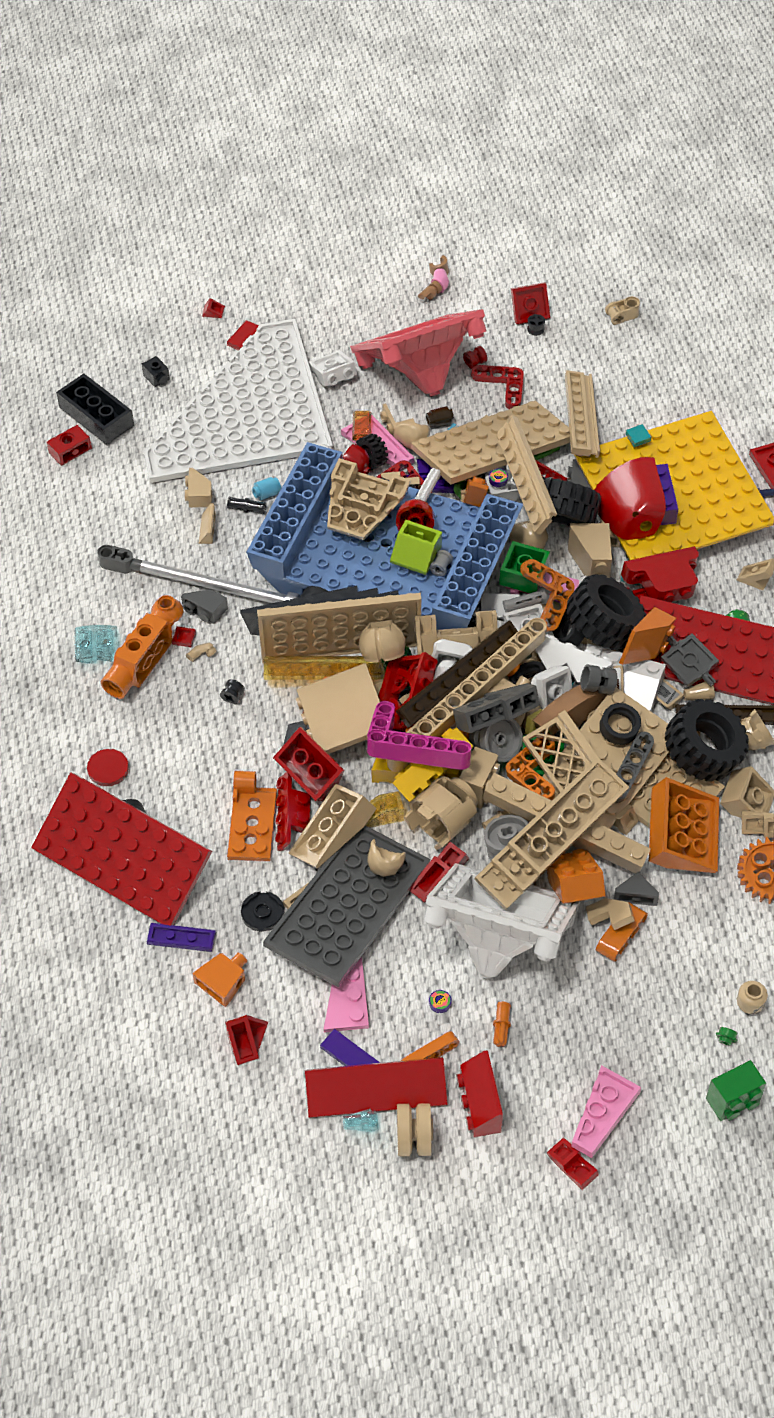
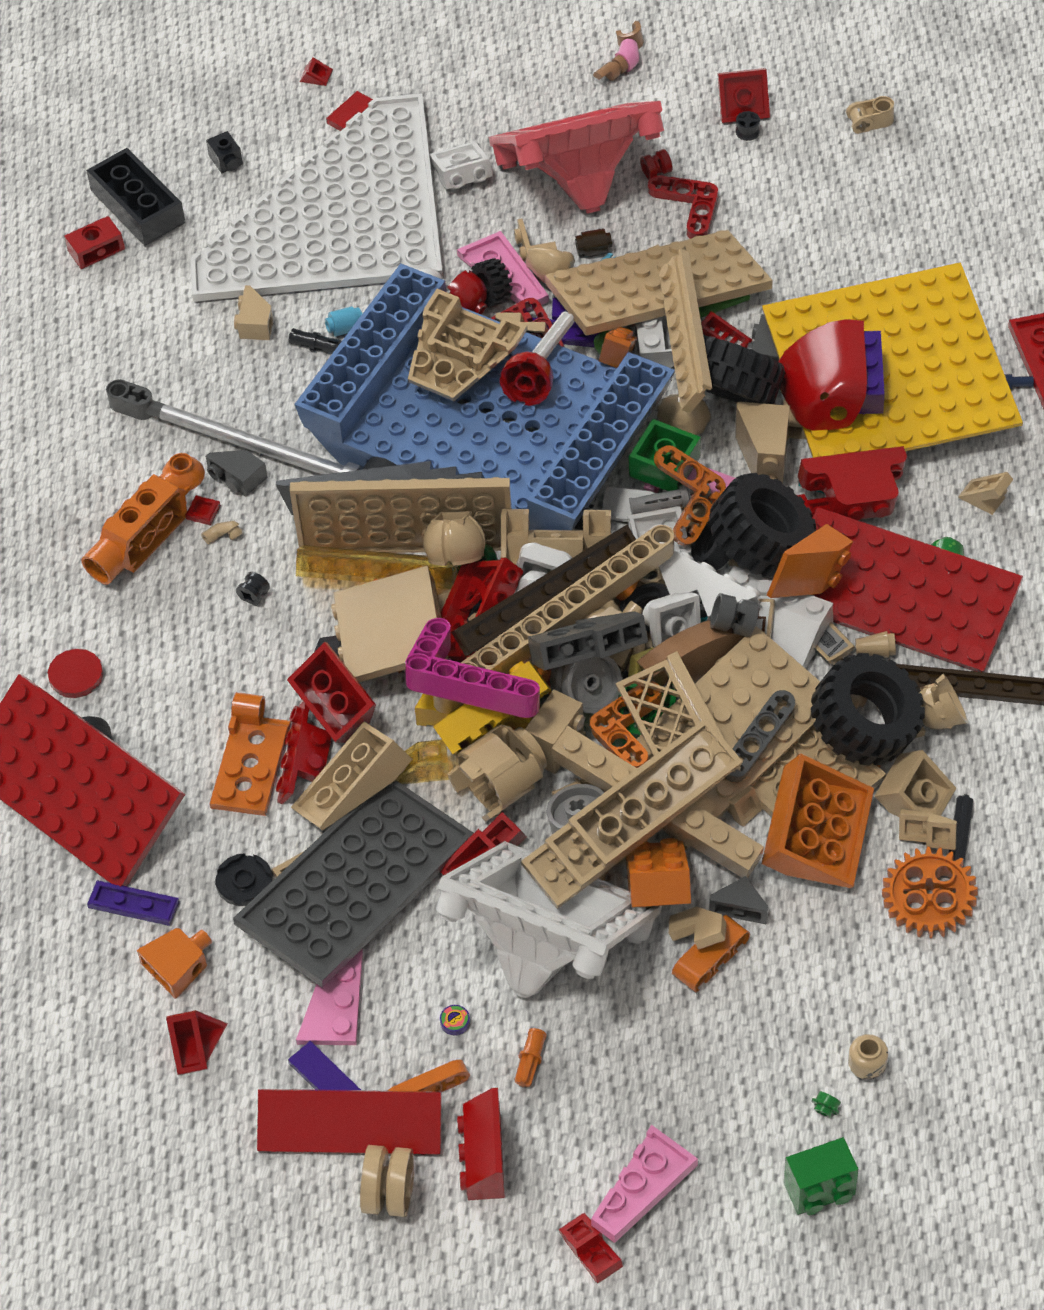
camera: 10 degrees right, 0 degrees up
(95, 643) = (85, 508): clear light blue slope -> none
(207, 525) = (259, 364): tan slope -> none
(361, 424) = (485, 244): clear orange tile -> none
(361, 1121) = (326, 1163): clear light blue cone -> none
(383, 861) = (408, 829): tan hair -> none
(416, 547) = (522, 416): lime slope -> none
(441, 563) = (552, 440): light grey bush -> none
(498, 478) = (652, 332): tile -> none
(581, 414) = (783, 253): tan plate -> none
(624, 710) = (755, 657): black tyre -> none
(638, 435) = (852, 289): teal tile -> none
(690, 660) = (868, 600): dark grey plate -> none

